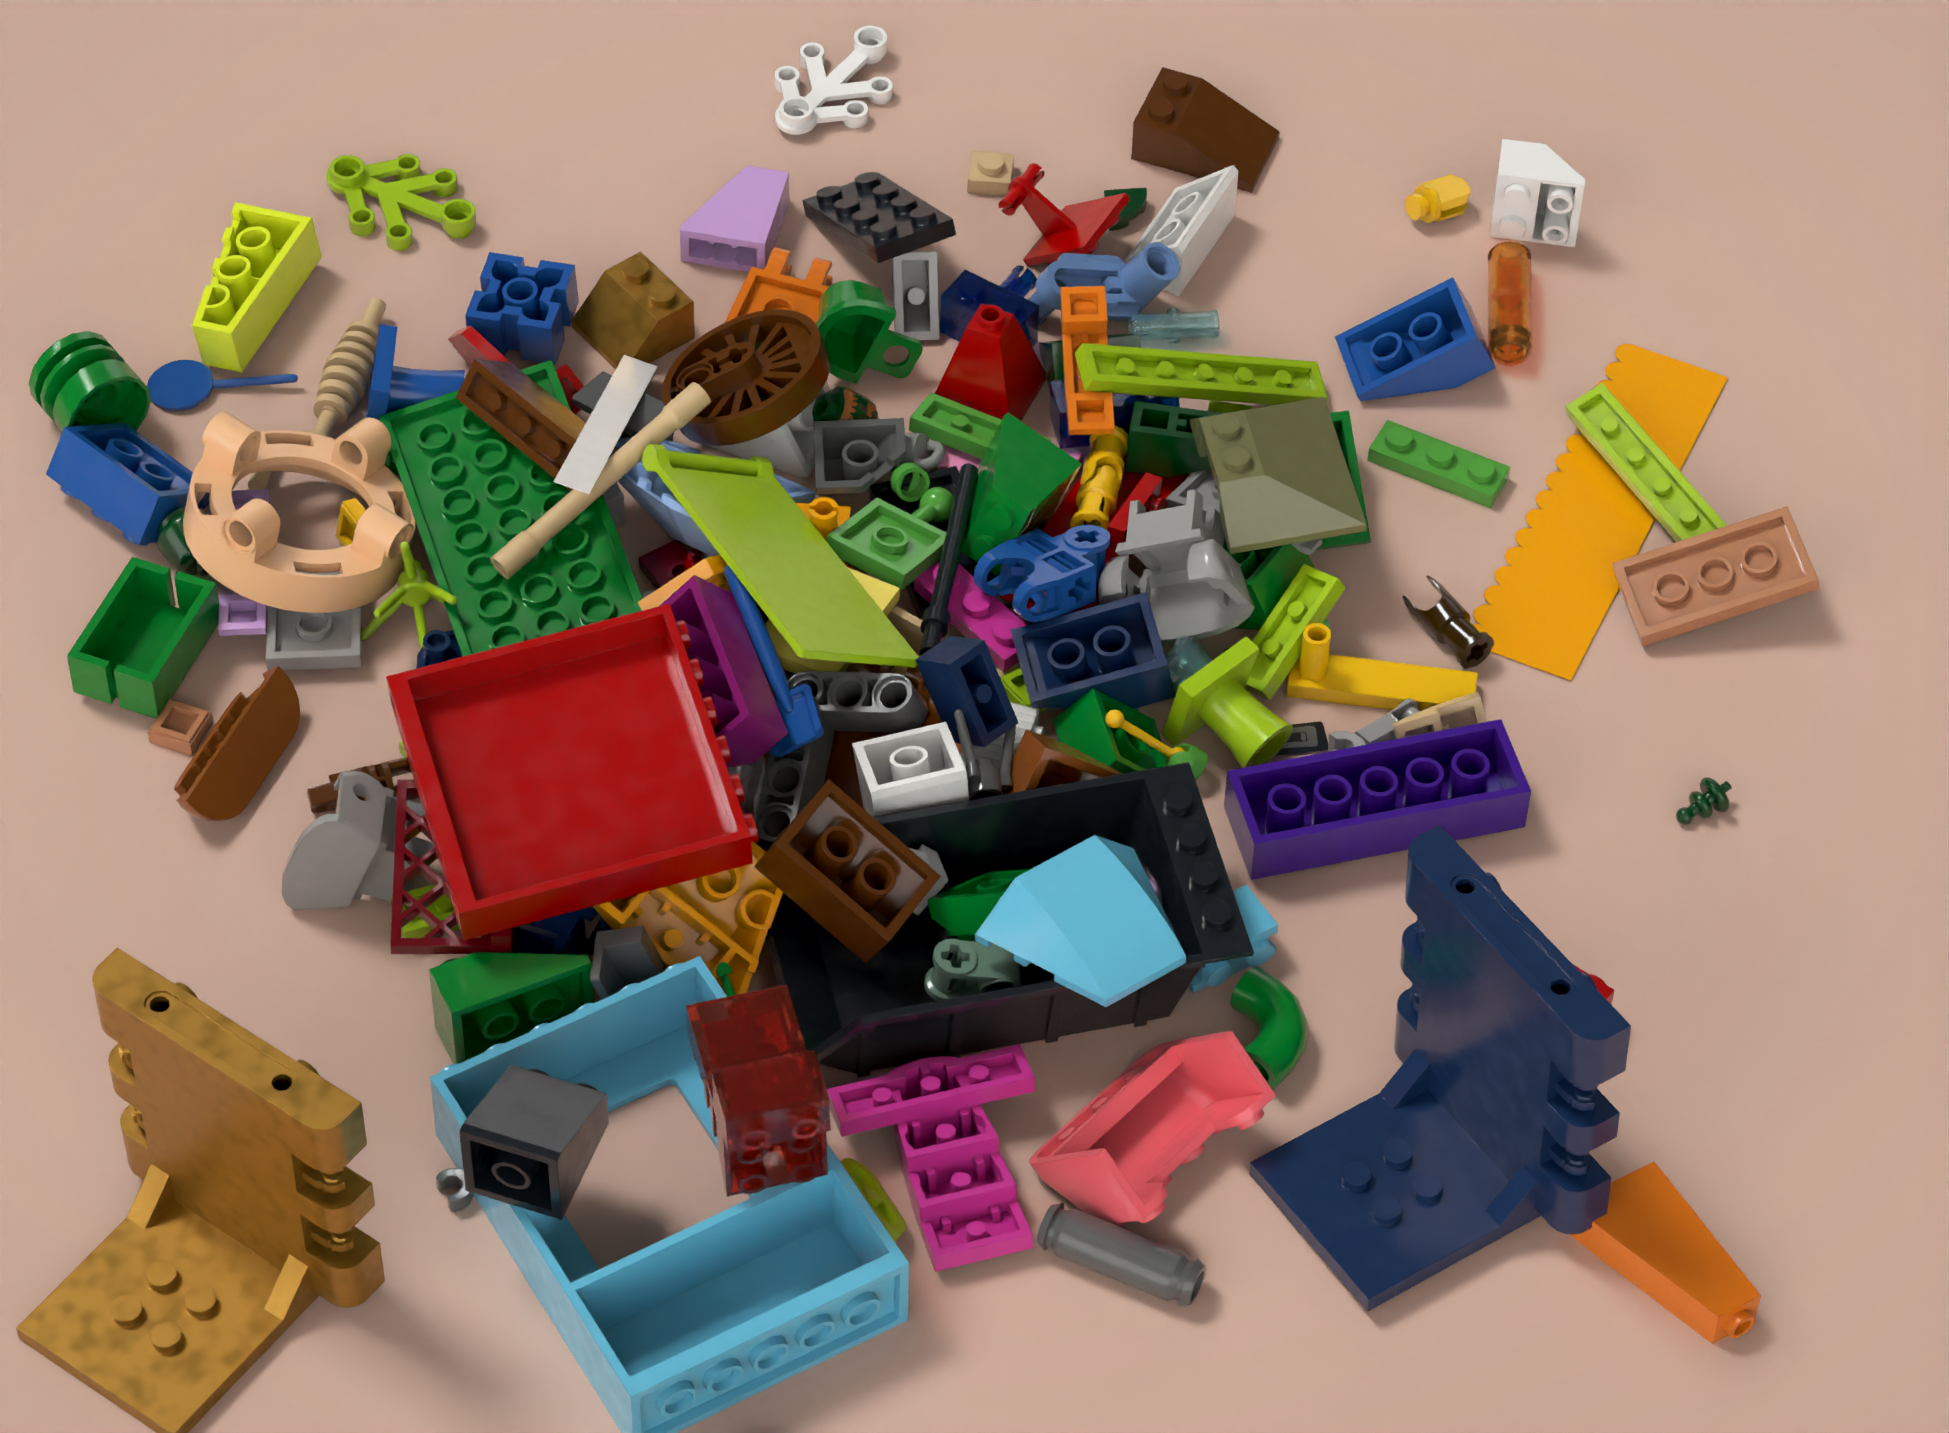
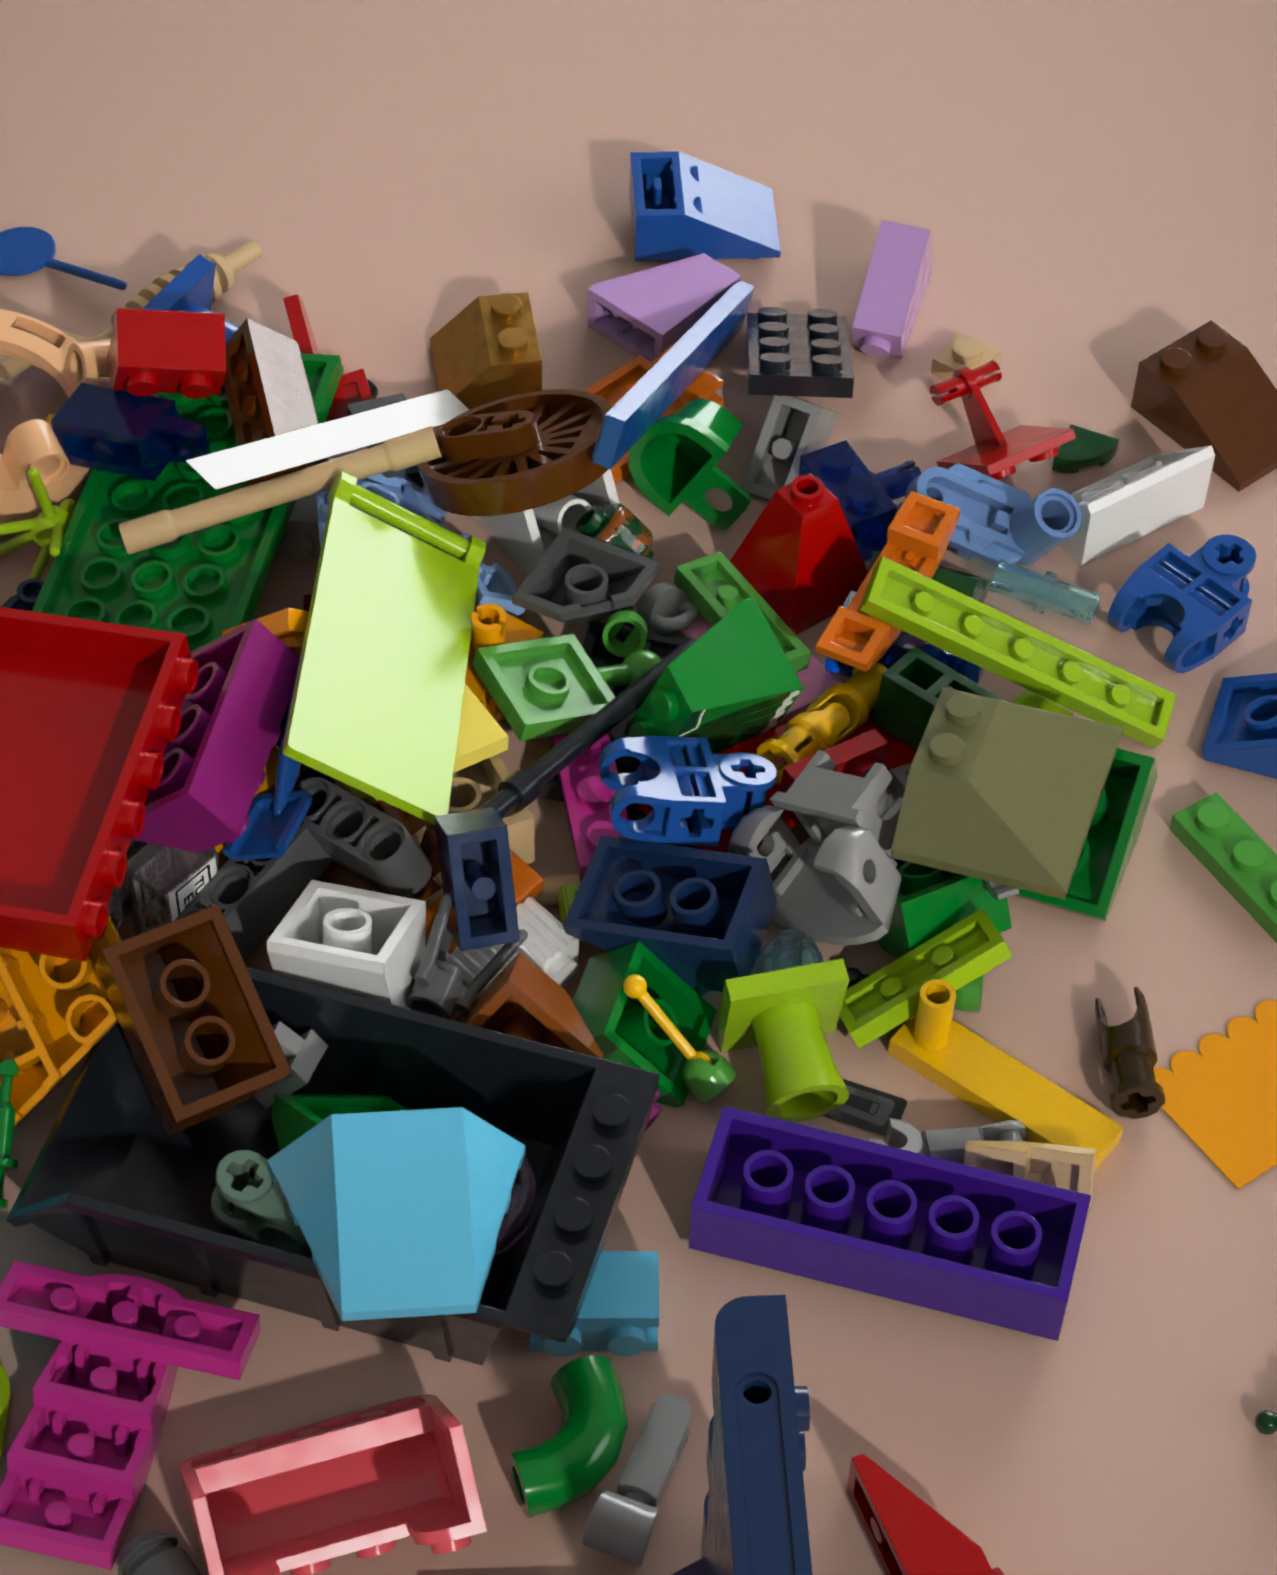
camera: 30 degrees right, 0 degrees up
(253, 283) = (144, 182): neon yellow wedge -> none
(351, 177) = (330, 123): lime plant -> none
(441, 411) = (167, 352): none -> red slope
(441, 485) = (125, 432): none -> clear blue hinge
(524, 306) = (377, 303): blue brick -> none
(705, 134) = (697, 208): none -> blue slope
(801, 114) = (808, 229): white plant -> none
(817, 268) = (671, 375): none -> blue tile
(906, 136) = (892, 289): none -> lavender slope
(1280, 286) = (1193, 597): none -> blue piece
(1339, 1057) = (624, 1520): none -> light grey piece

